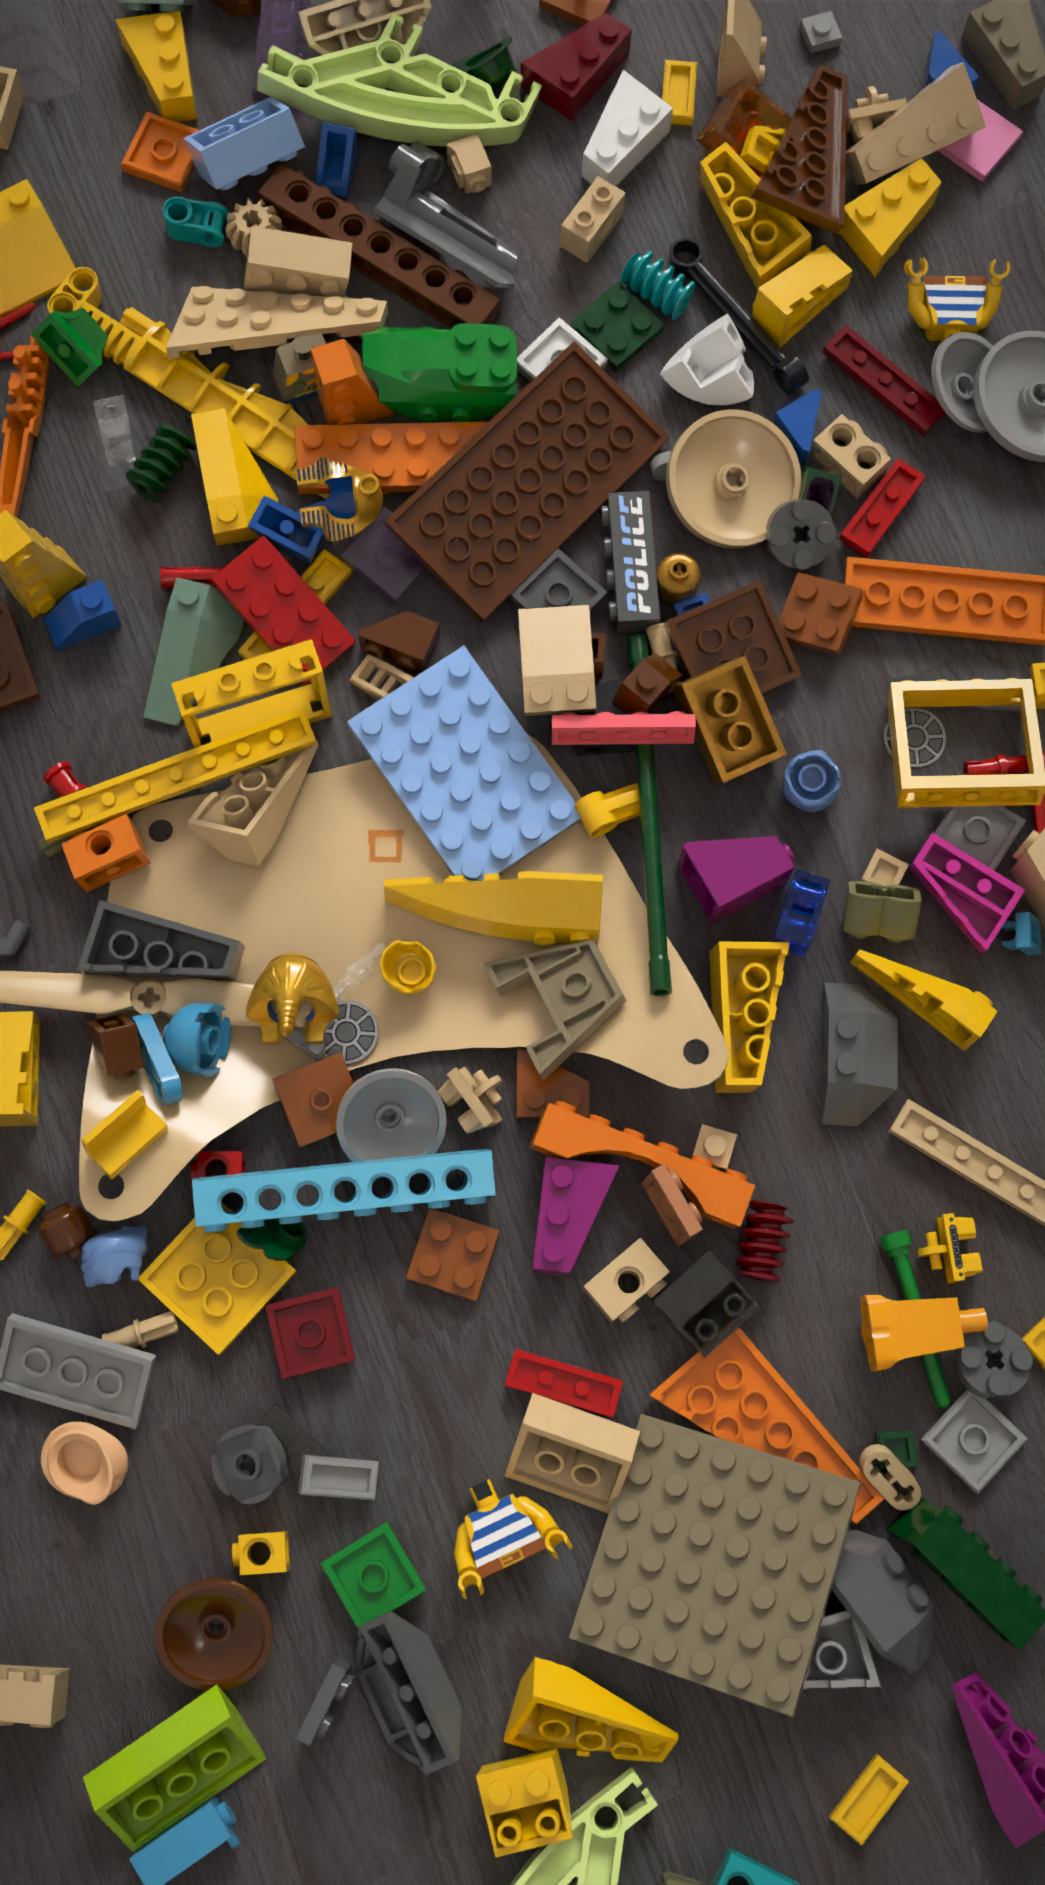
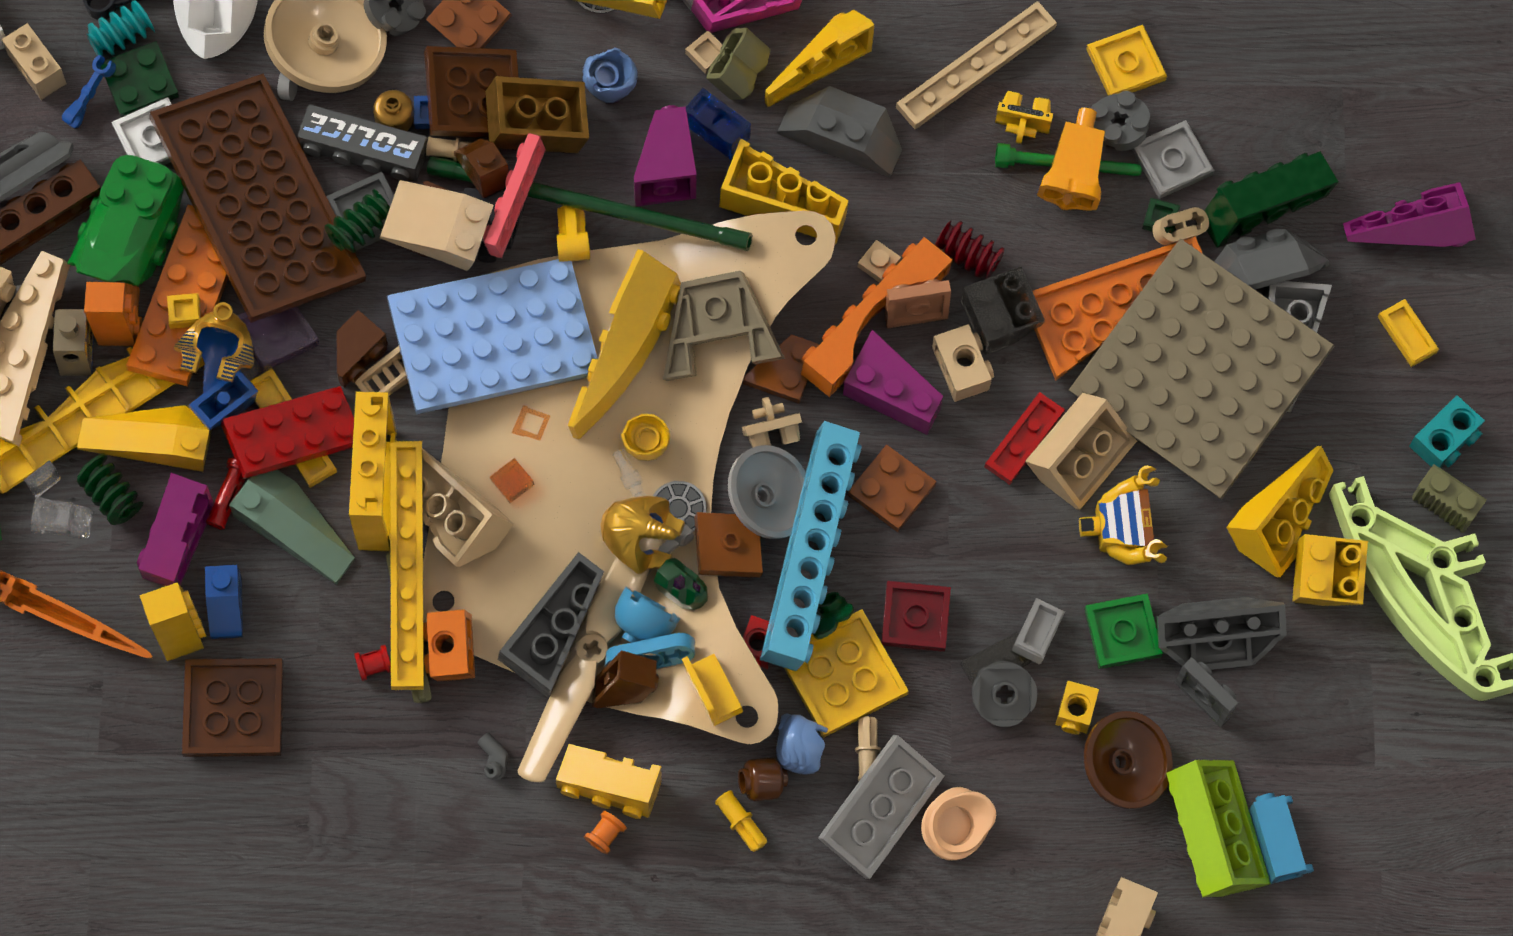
camera: 70 degrees left, 5 degrees down
(135, 541) = (175, 531): none -> magenta wedge
(151, 398) = (42, 479): none -> clear tile
(250, 1064) = (681, 585): none -> dark green rock
(312, 849) = (512, 480): none -> clear orange tile
(372, 455) = (183, 310): none -> yellow tile
(530, 586) = (358, 222): none -> dark green piece
(556, 280) = (75, 112): none -> blue piece

